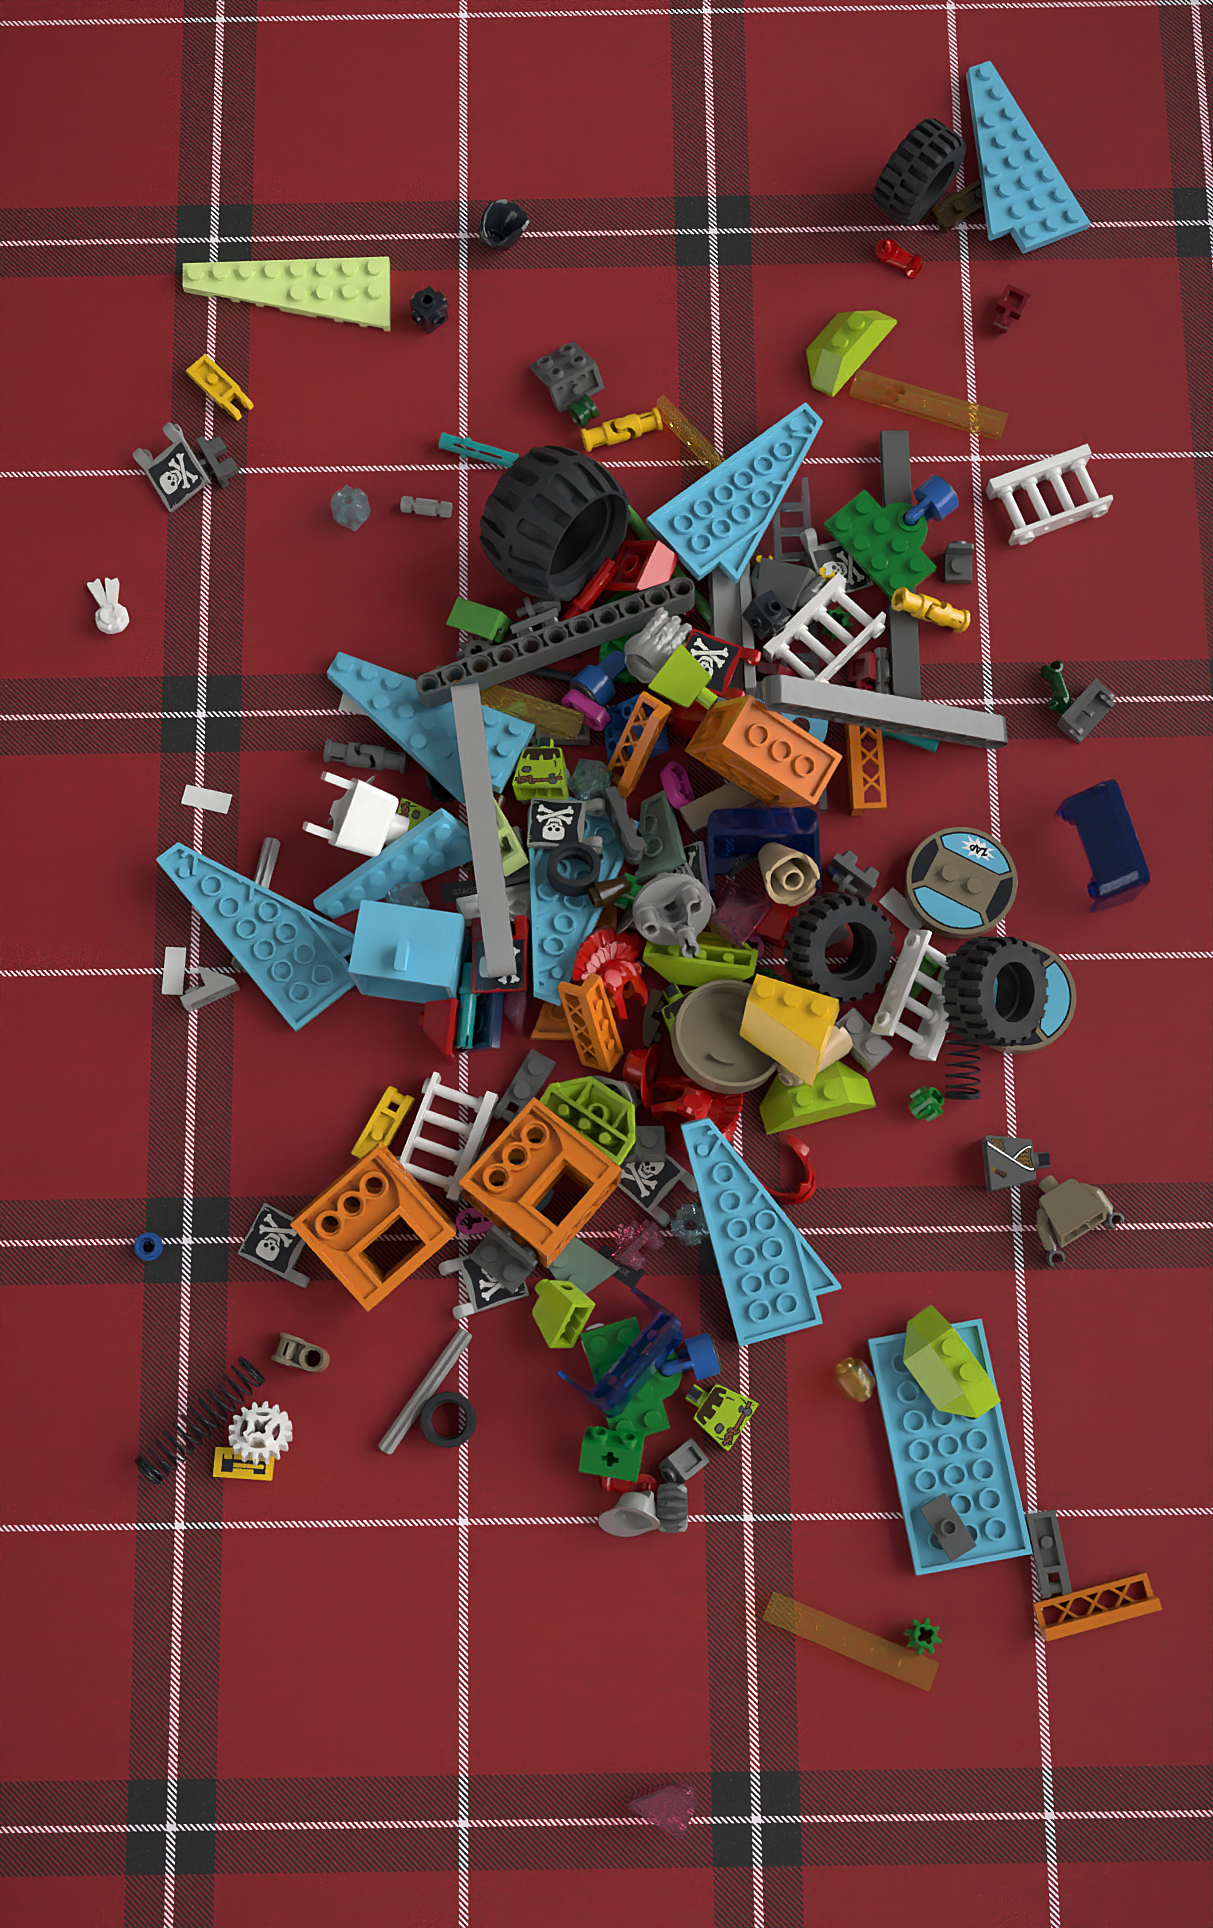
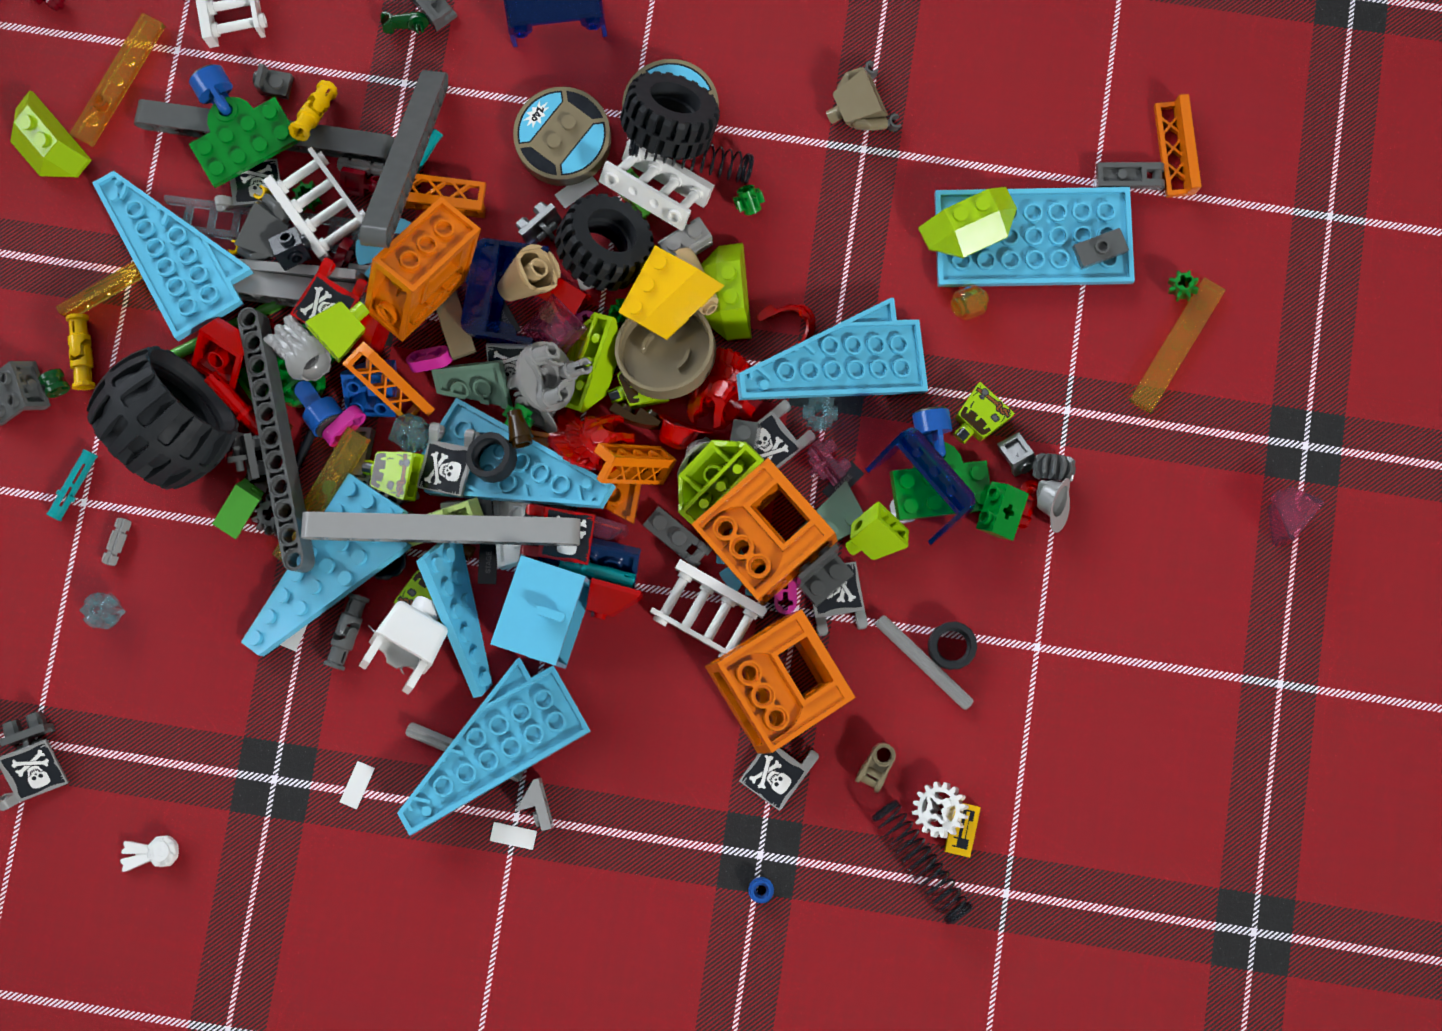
camera: 80 degrees left, 5 degrees up
(383, 1122) = (687, 665): yellow plate -> none
(408, 894) = (487, 612): clear light blue brick -> none
(623, 826) = (459, 409): dark grey plate -> none
(1010, 1162) = (810, 142): dark grey torso -> none

